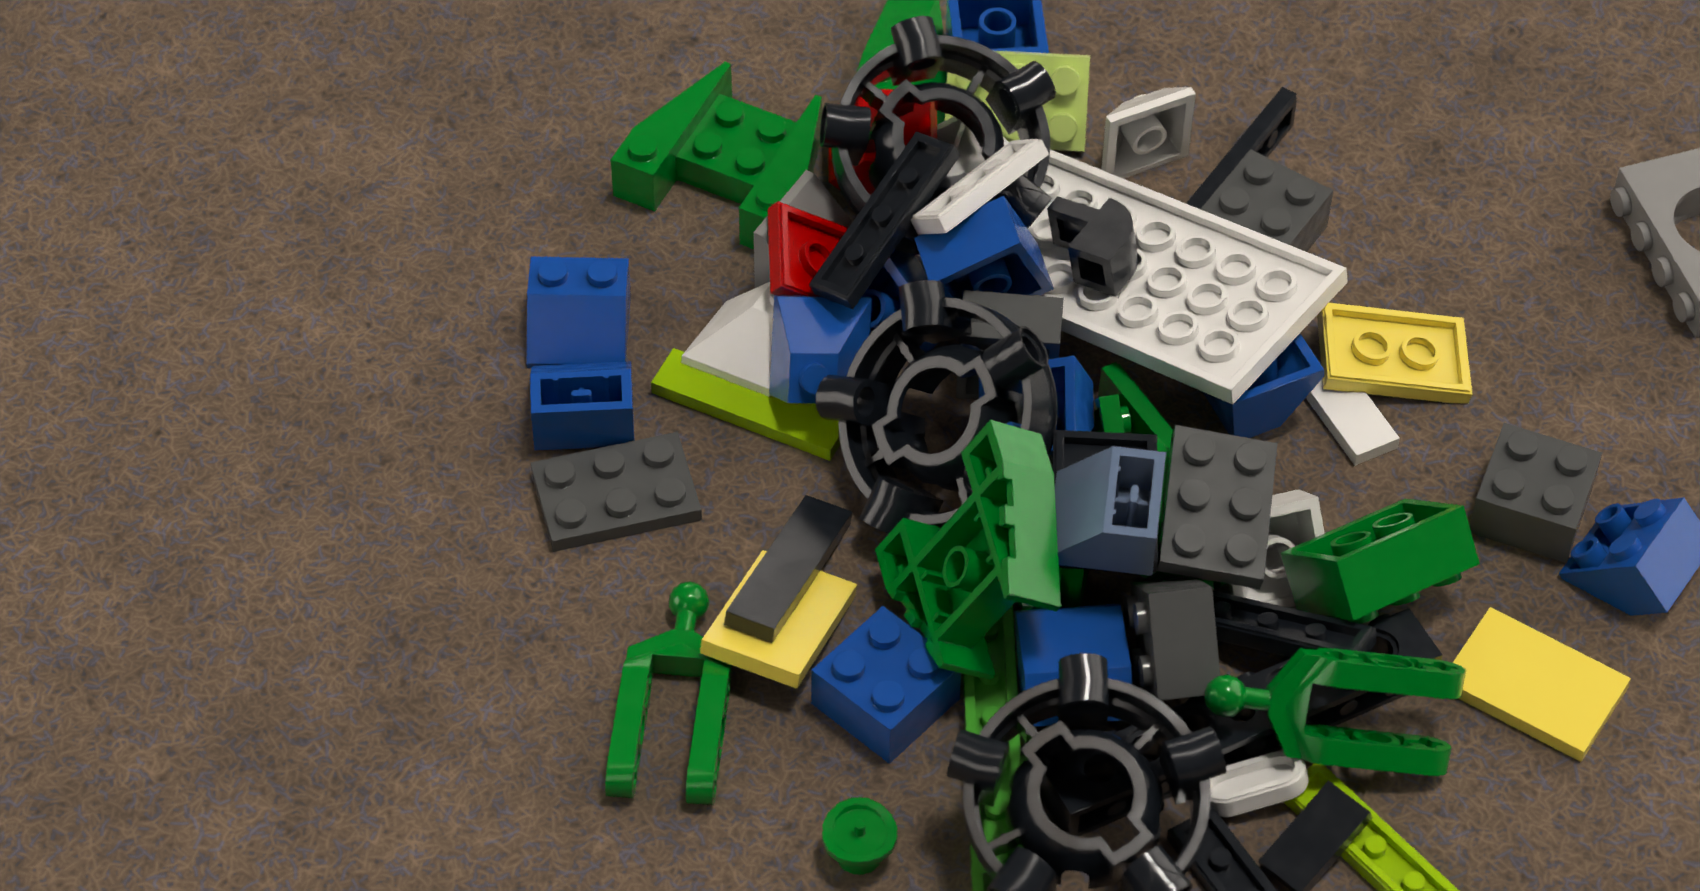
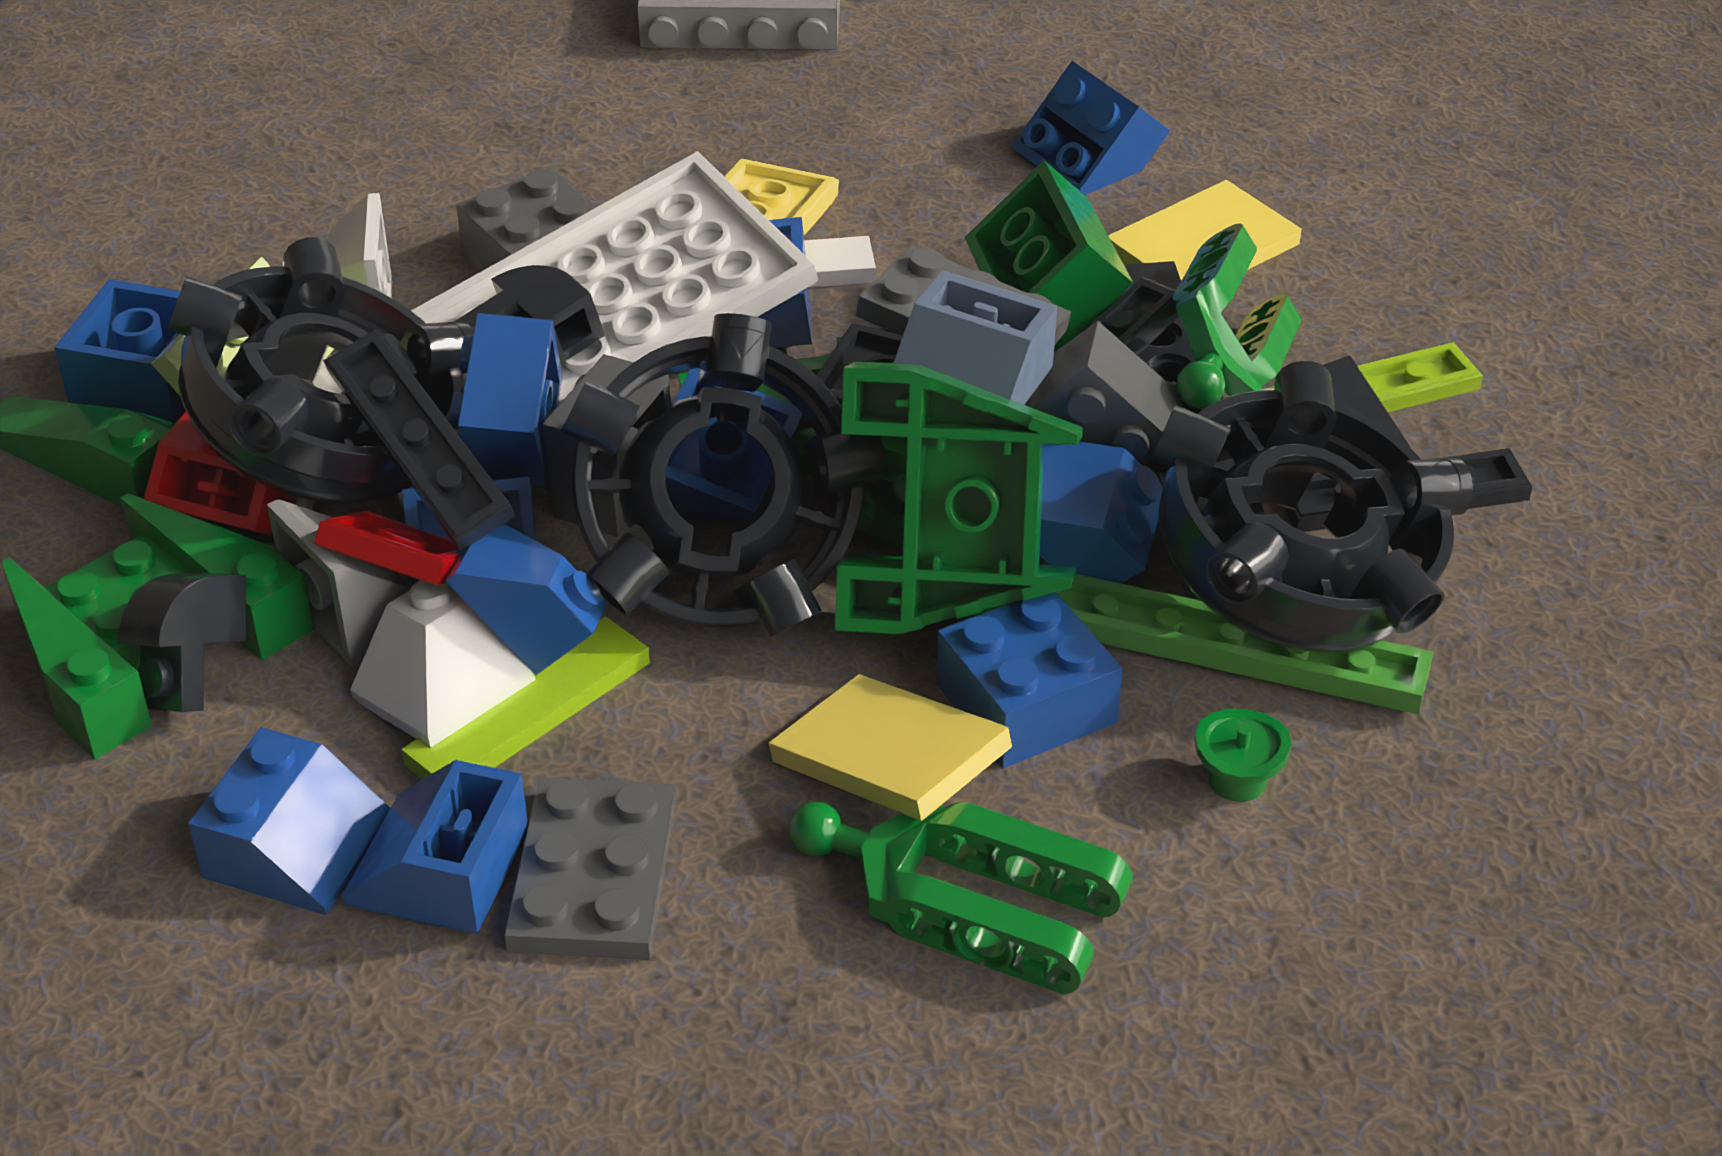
camera: 70 degrees left, 10 degrees down
(712, 175) = (172, 623): none -> black brick
(788, 568) = (826, 714): black tile -> none
(979, 186) = (436, 342): white tile -> none
(1260, 137) = (435, 224): black tile -> none
(1535, 492) = (981, 160): dark grey brick -> none

